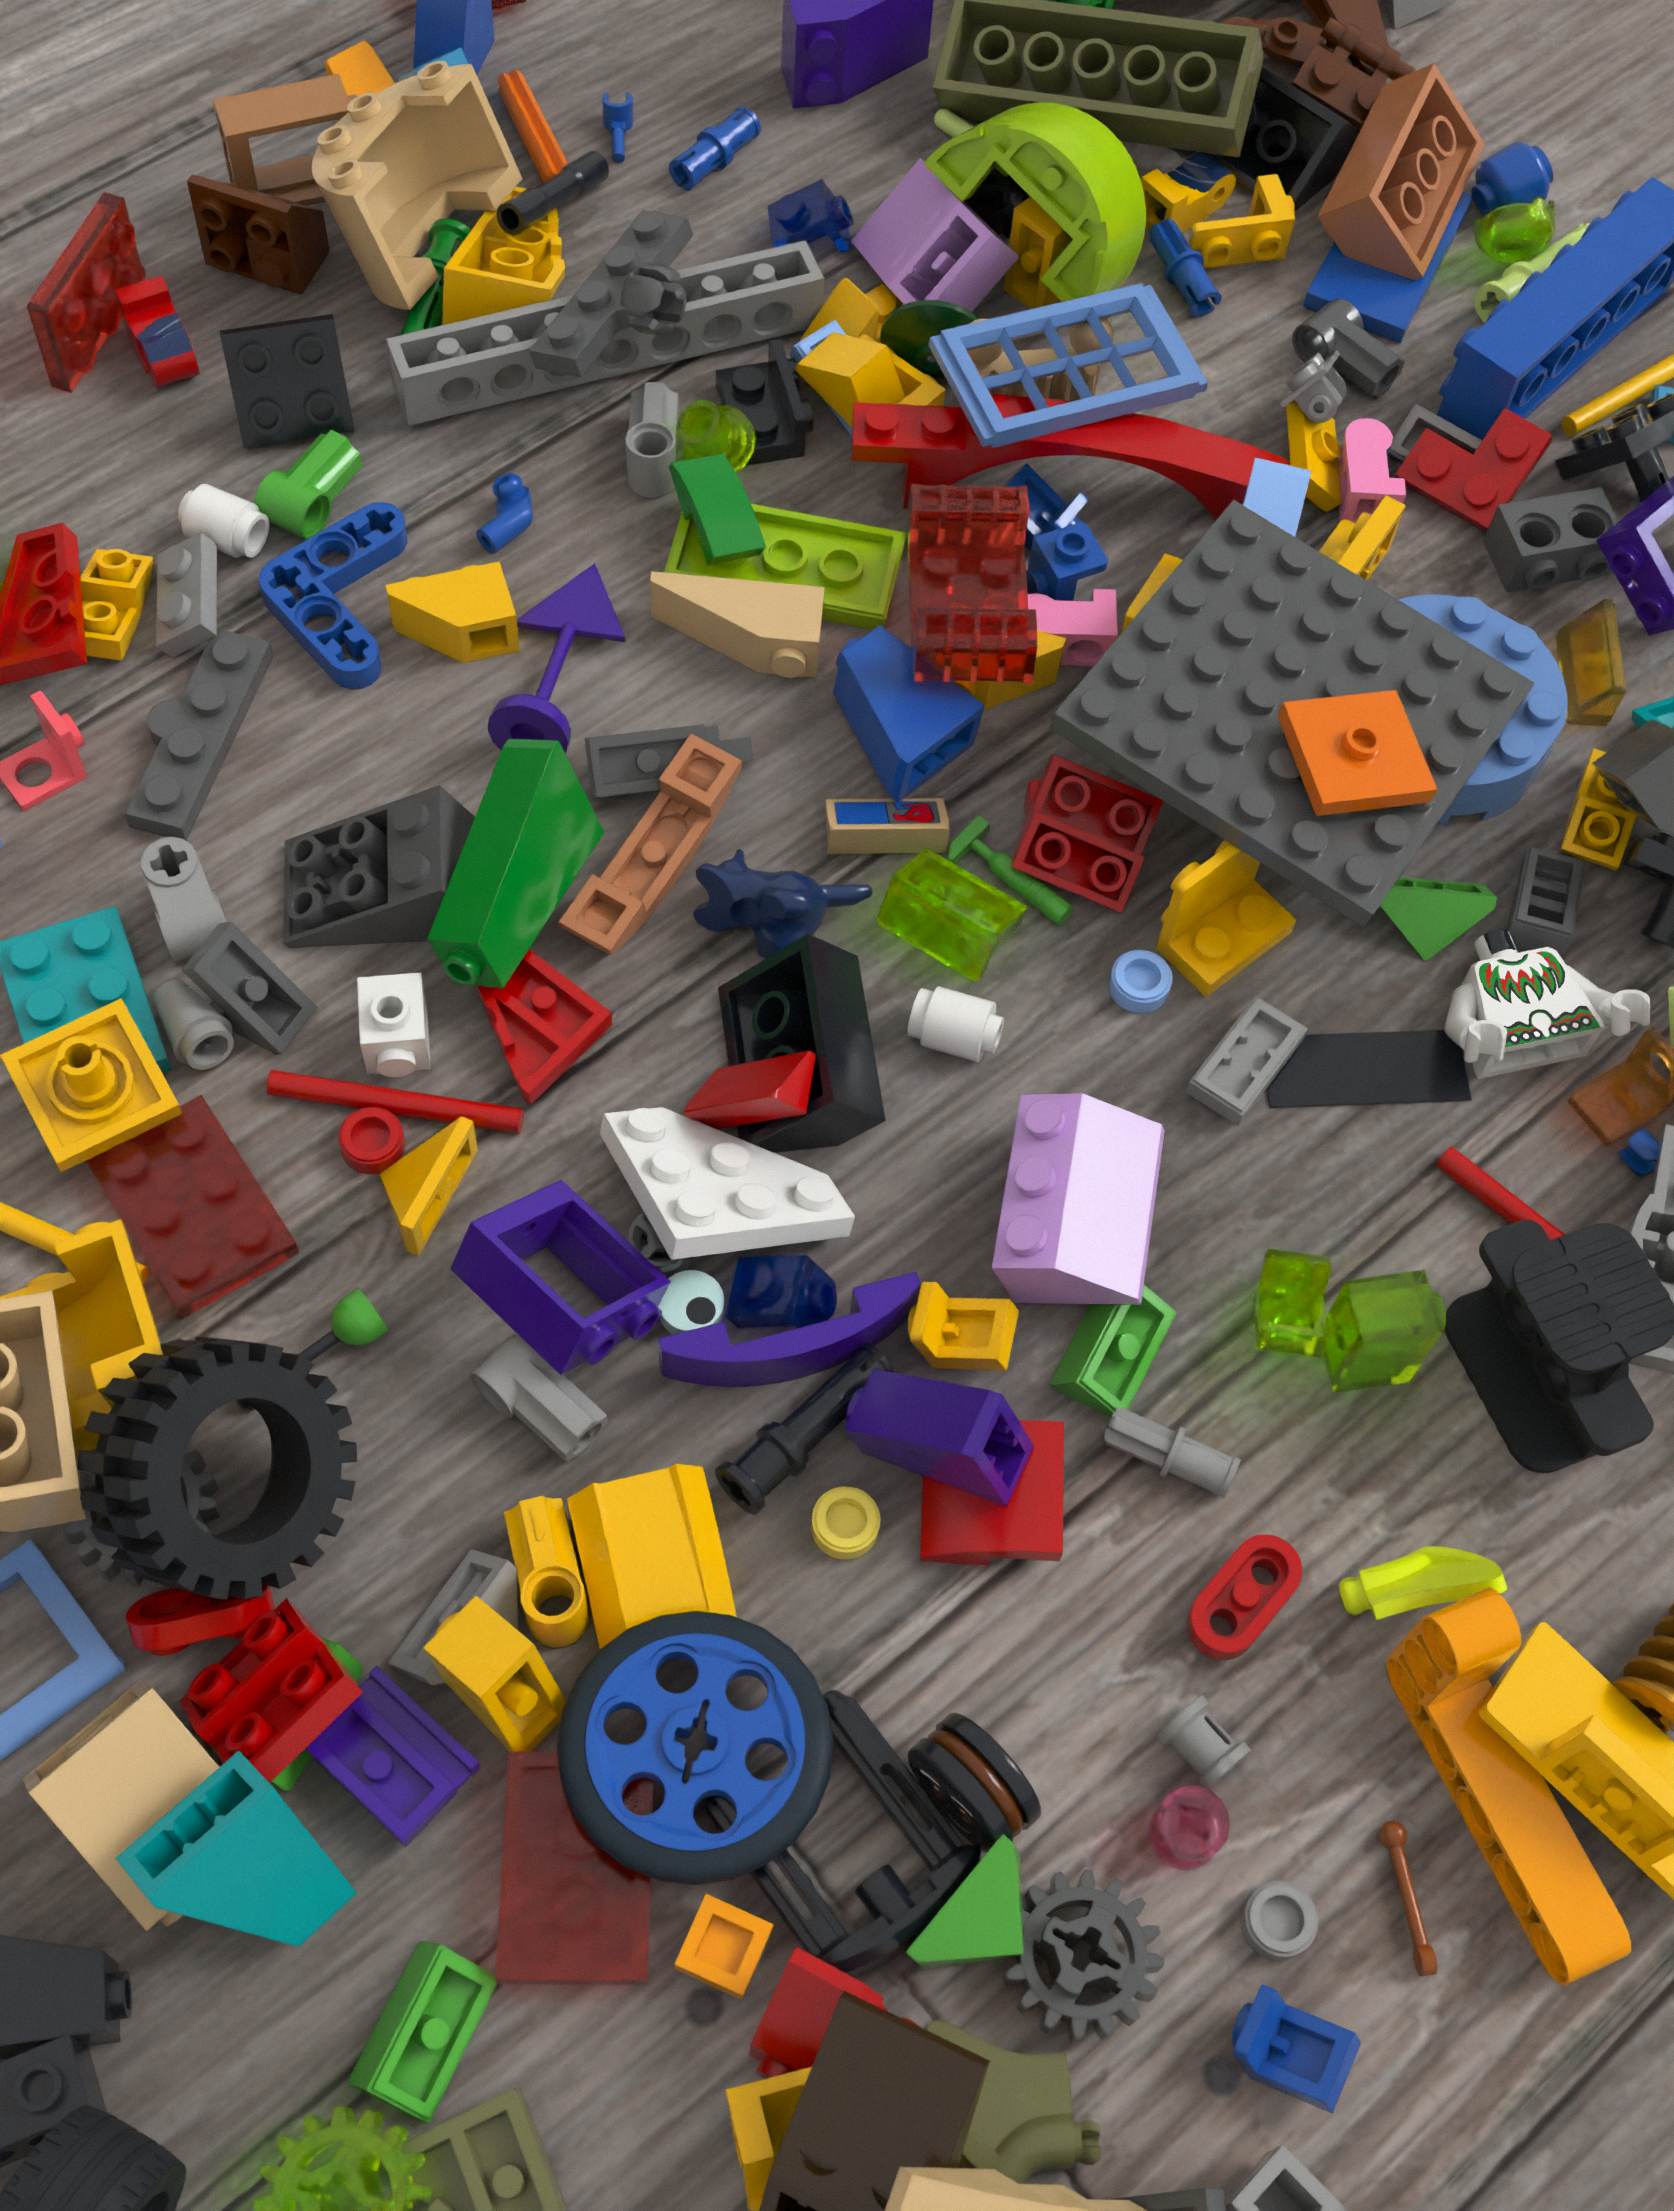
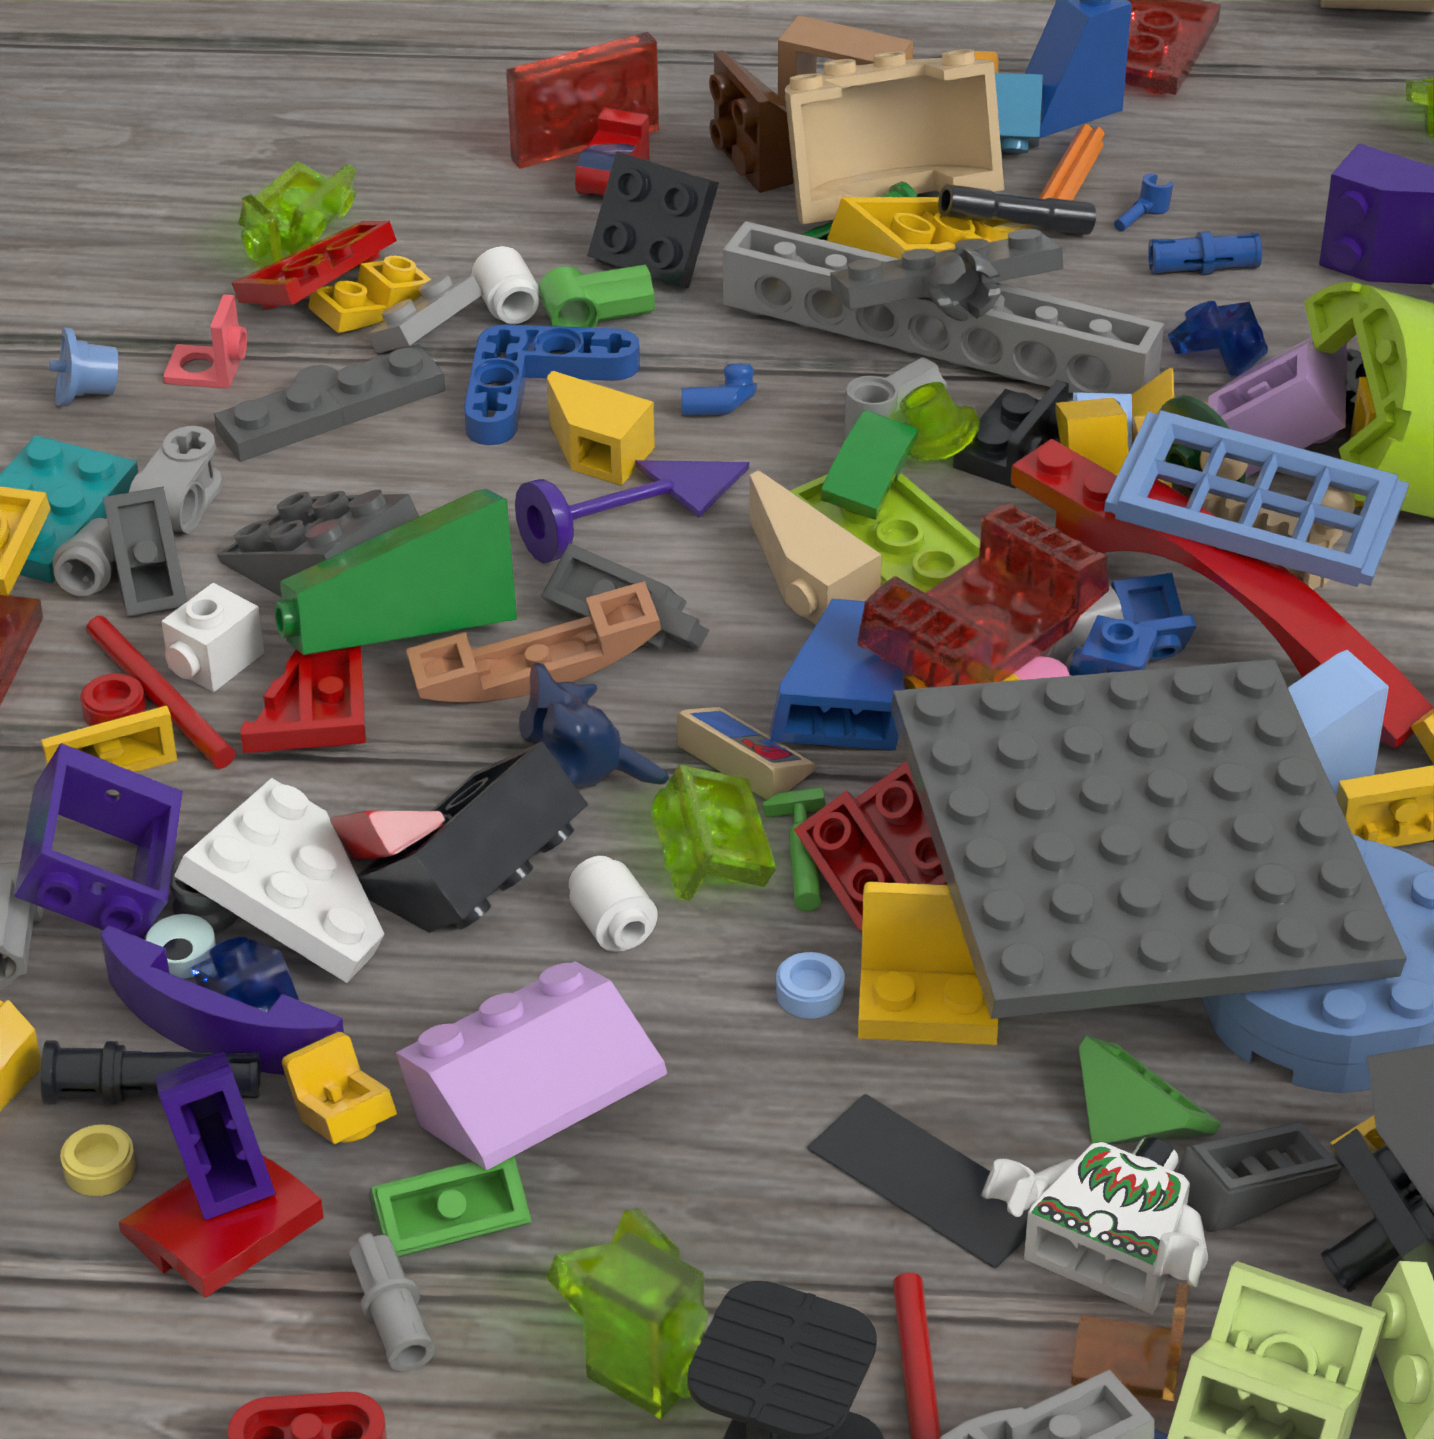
camera: 50 degrees right, 20 degrees down
(1246, 1060) = (819, 1090): light grey plate -> none
(1356, 752) = (1124, 874): orange plate -> none

